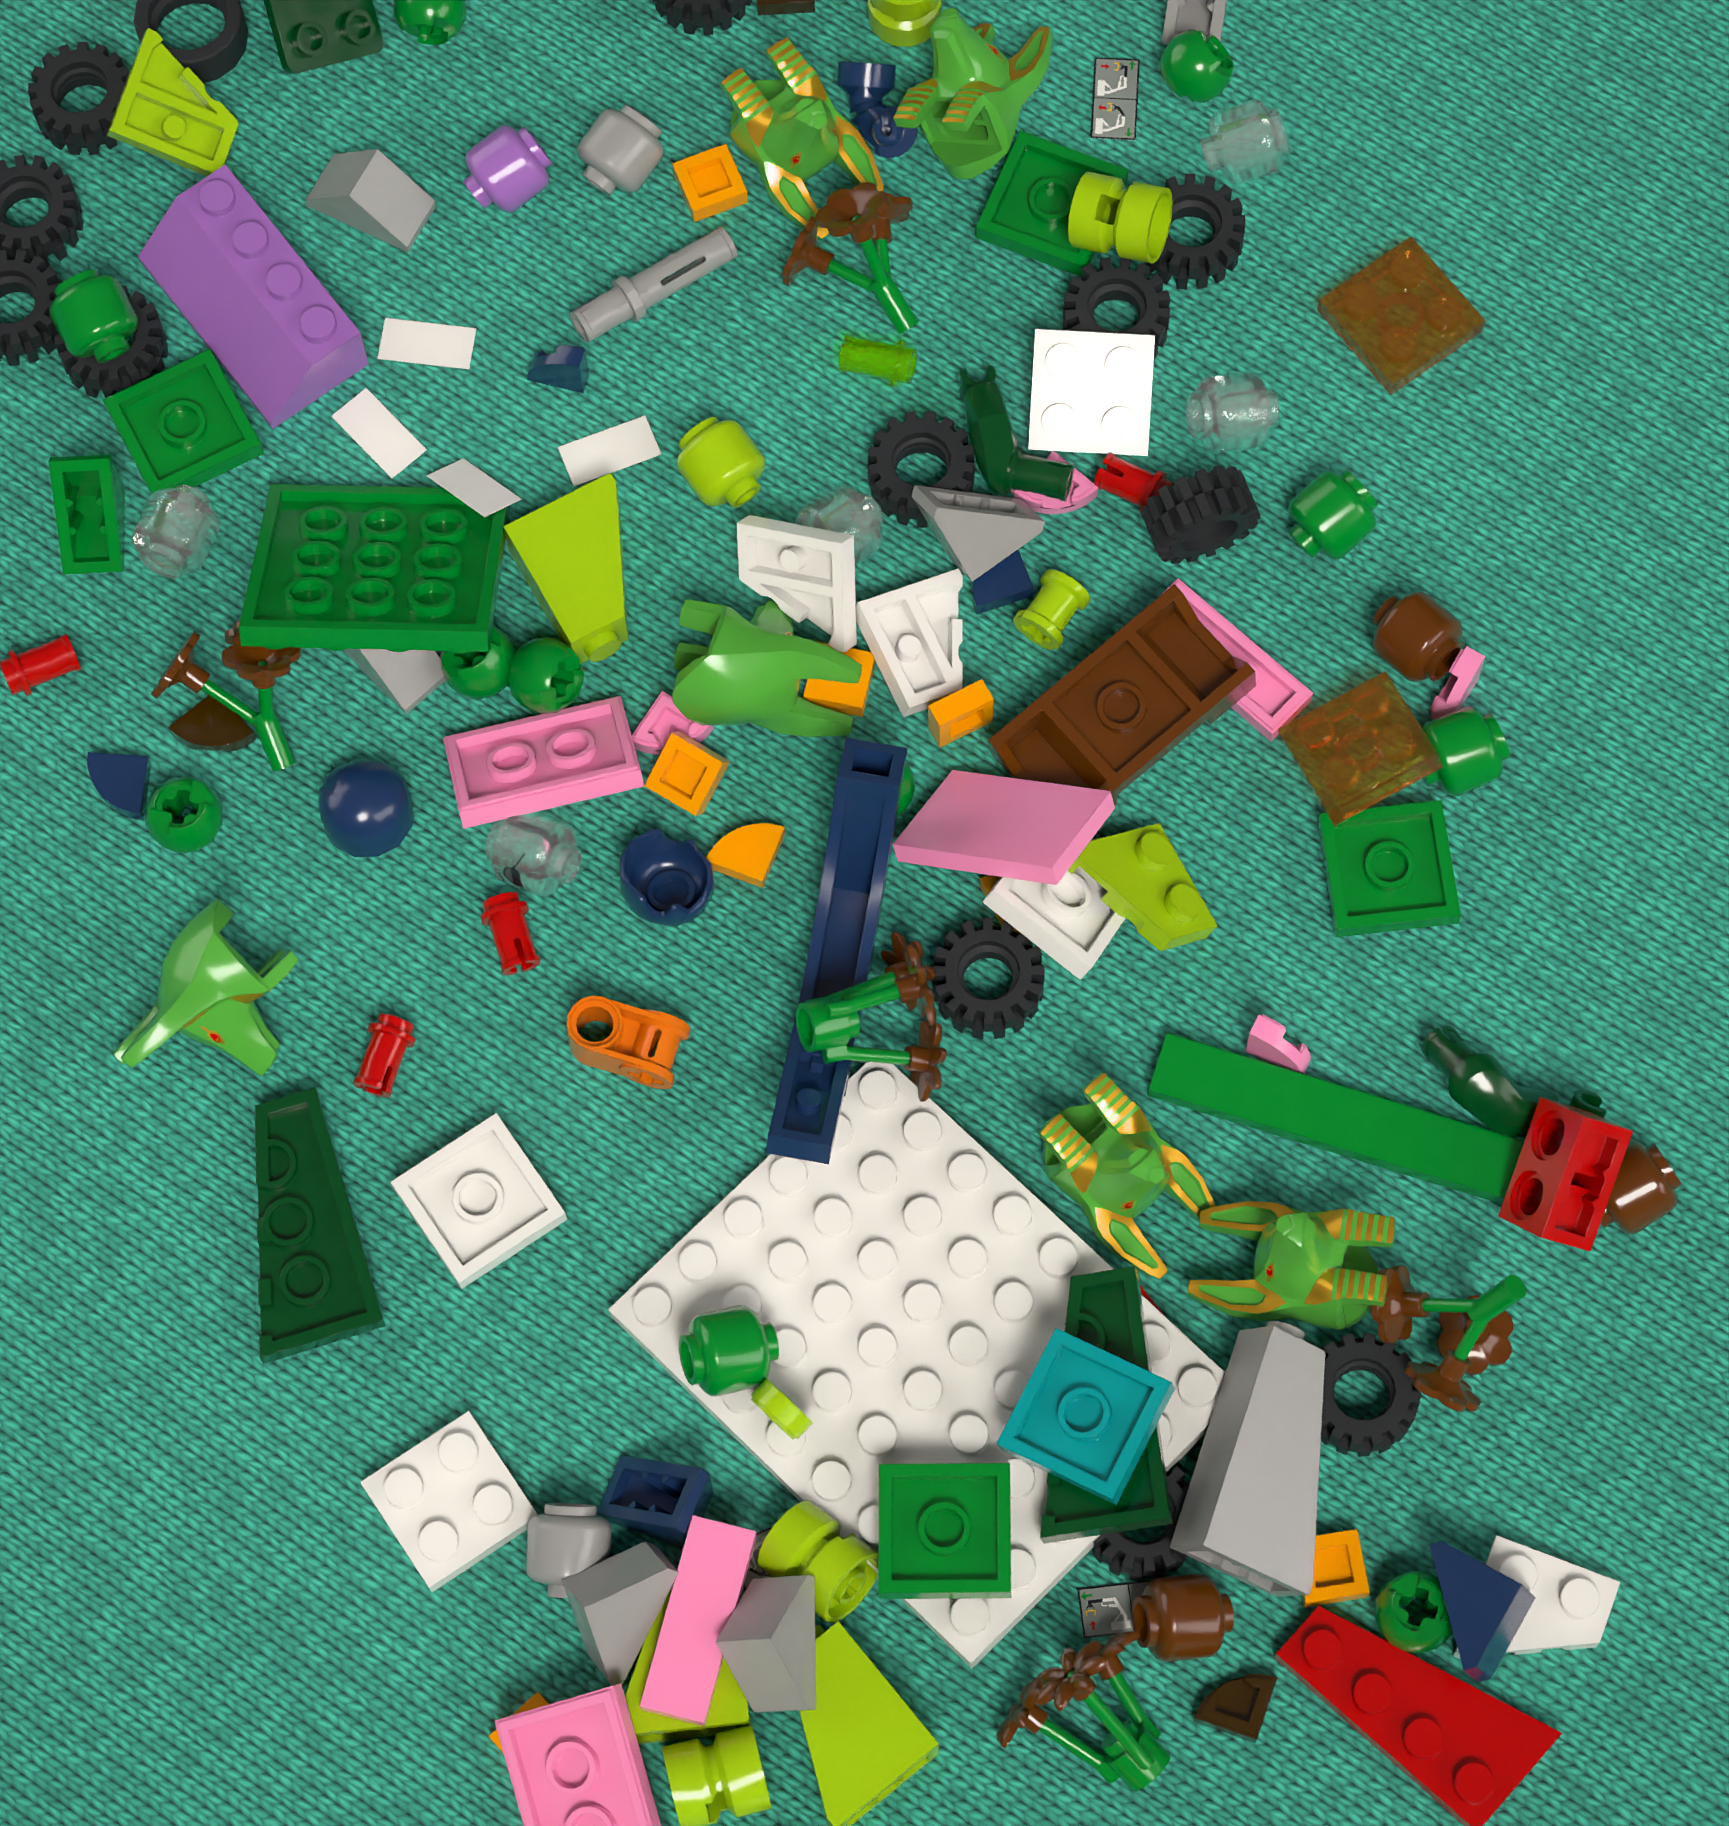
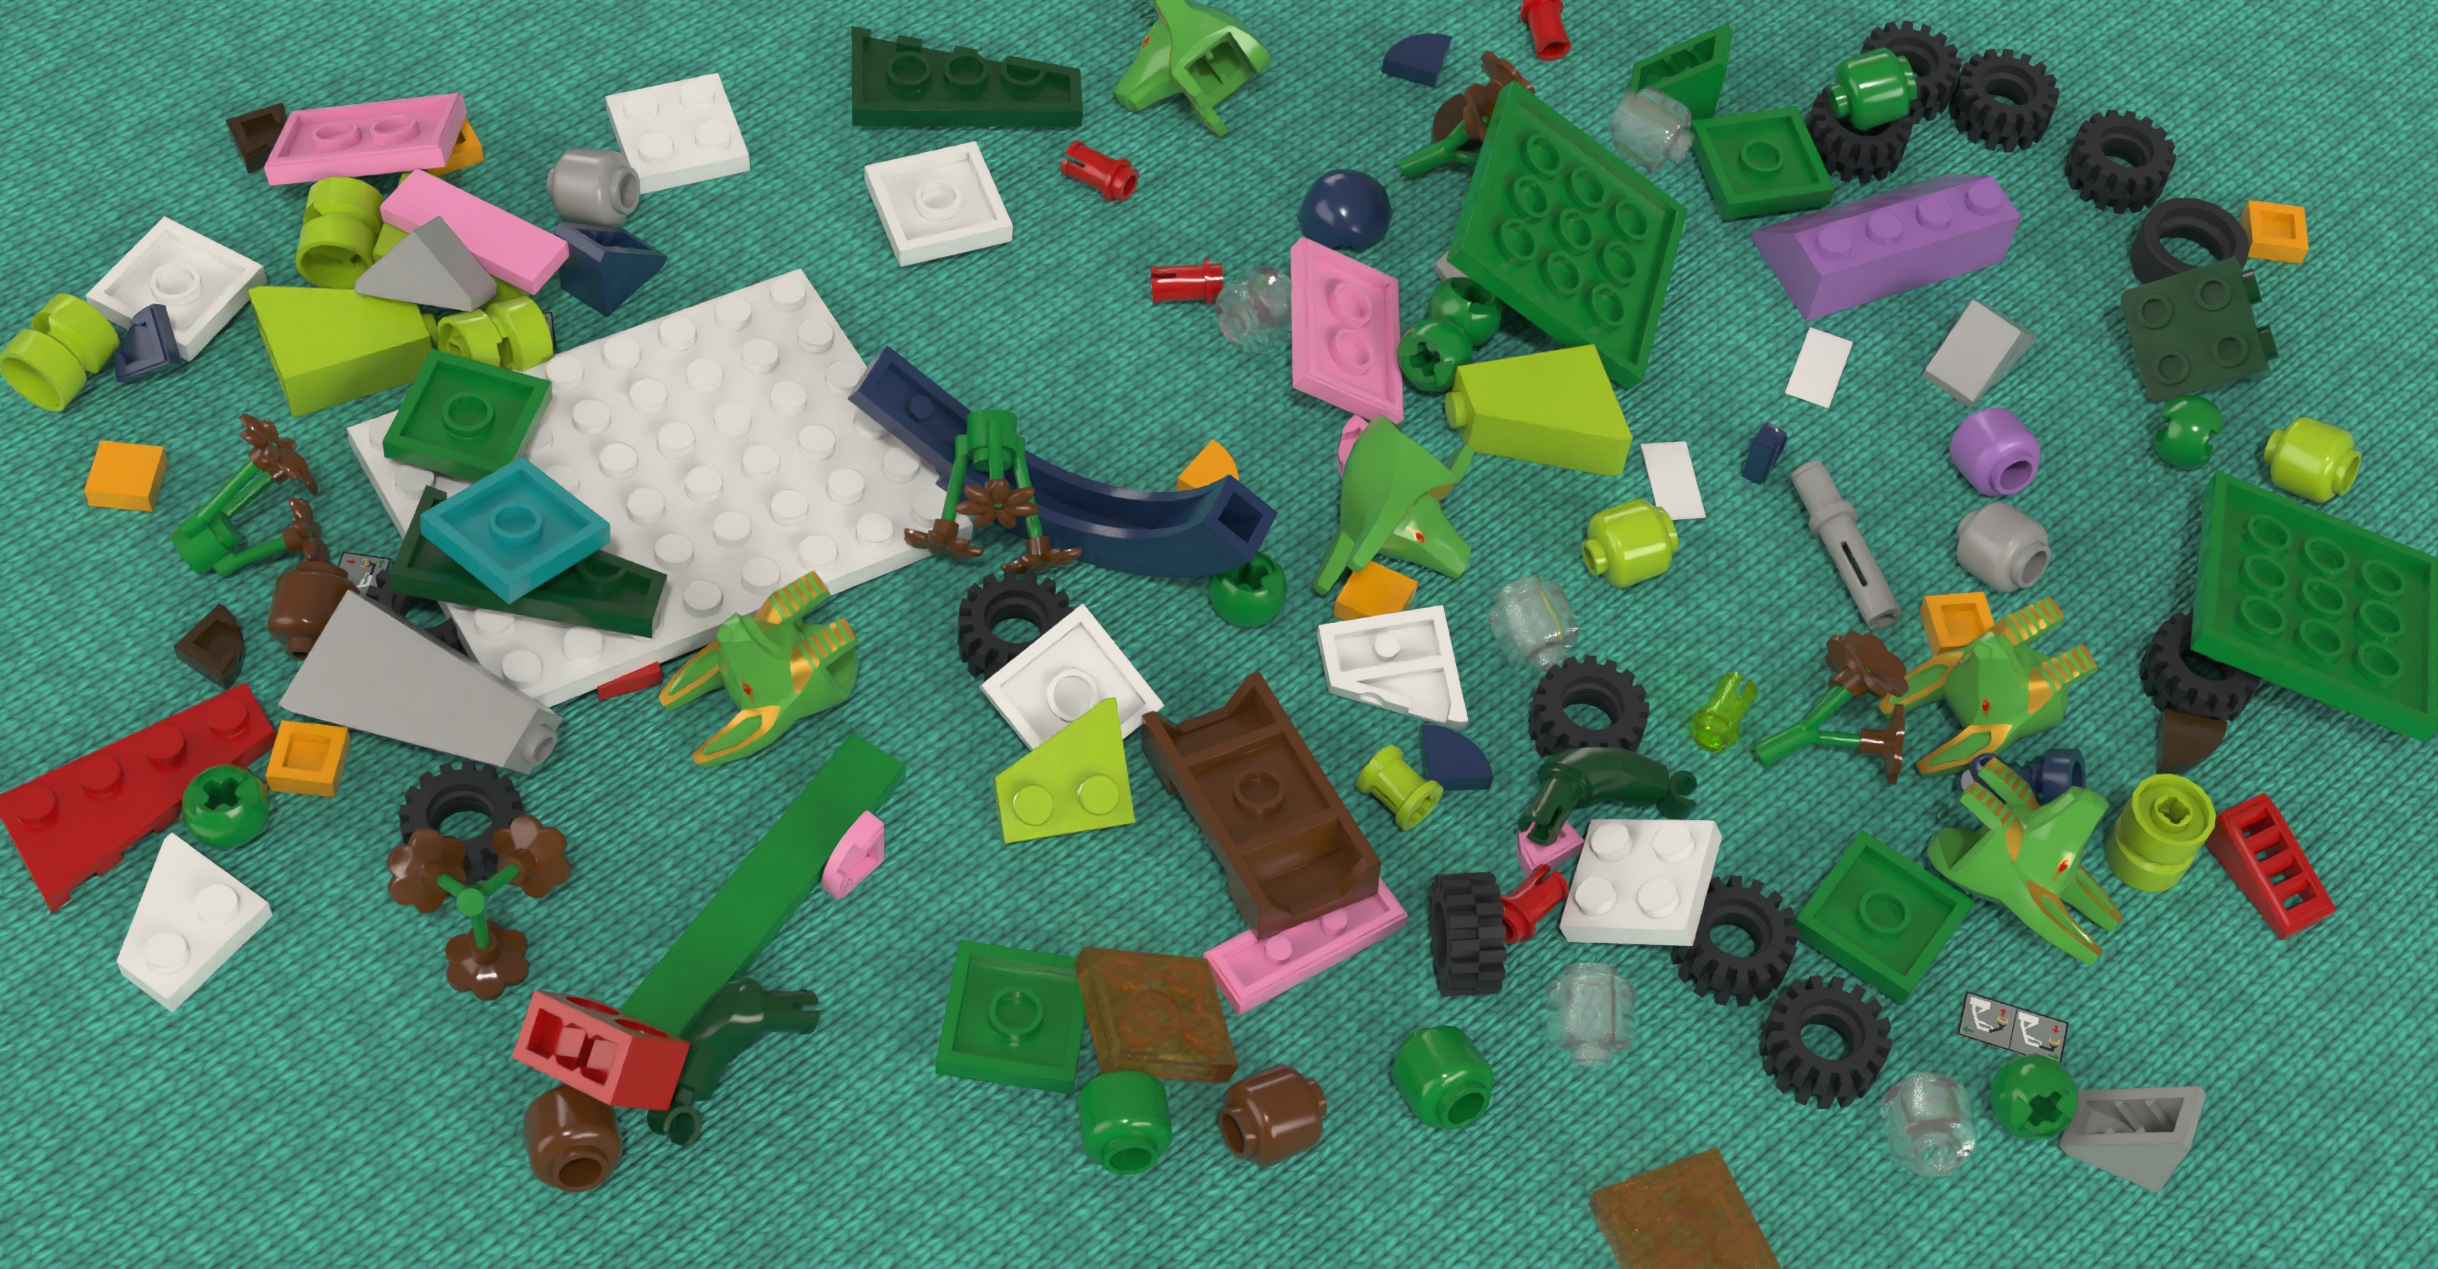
camera: 95 degrees right, 15 degrees down
(170, 112) = (2092, 207): lime wing -> none
(171, 800) = (1371, 83): green piece -> none
(379, 433) = (1729, 311): white sticker -> none
(474, 487) = (1649, 352): white sticker -> none
(619, 1604) = (519, 181): light grey slope -> none
(631, 1042) = (1050, 333): orange piece -> none
(665, 879) = (1200, 394): dark blue hair -> none
(687, 773) = (1306, 446): light orange tile -> none
(728, 1350) = (710, 307): green head -> none
(780, 1410) = (638, 332): lime tile -> none
(803, 572) = (1486, 566): white wing -> none
(960, 713) = (1304, 676): light orange tile -> none
(977, 527) = (1506, 725): light grey slope -> none
(1004, 827) = (1155, 652): bright pink tile -> none
(1112, 215) = (1836, 934): lime wheel -> none
(1303, 1264) = (612, 795): bright green piece -> none
(1464, 676) = (1210, 1152): bright pink tile -> none
(1482, 1608) = (195, 838): dark blue slope -> none

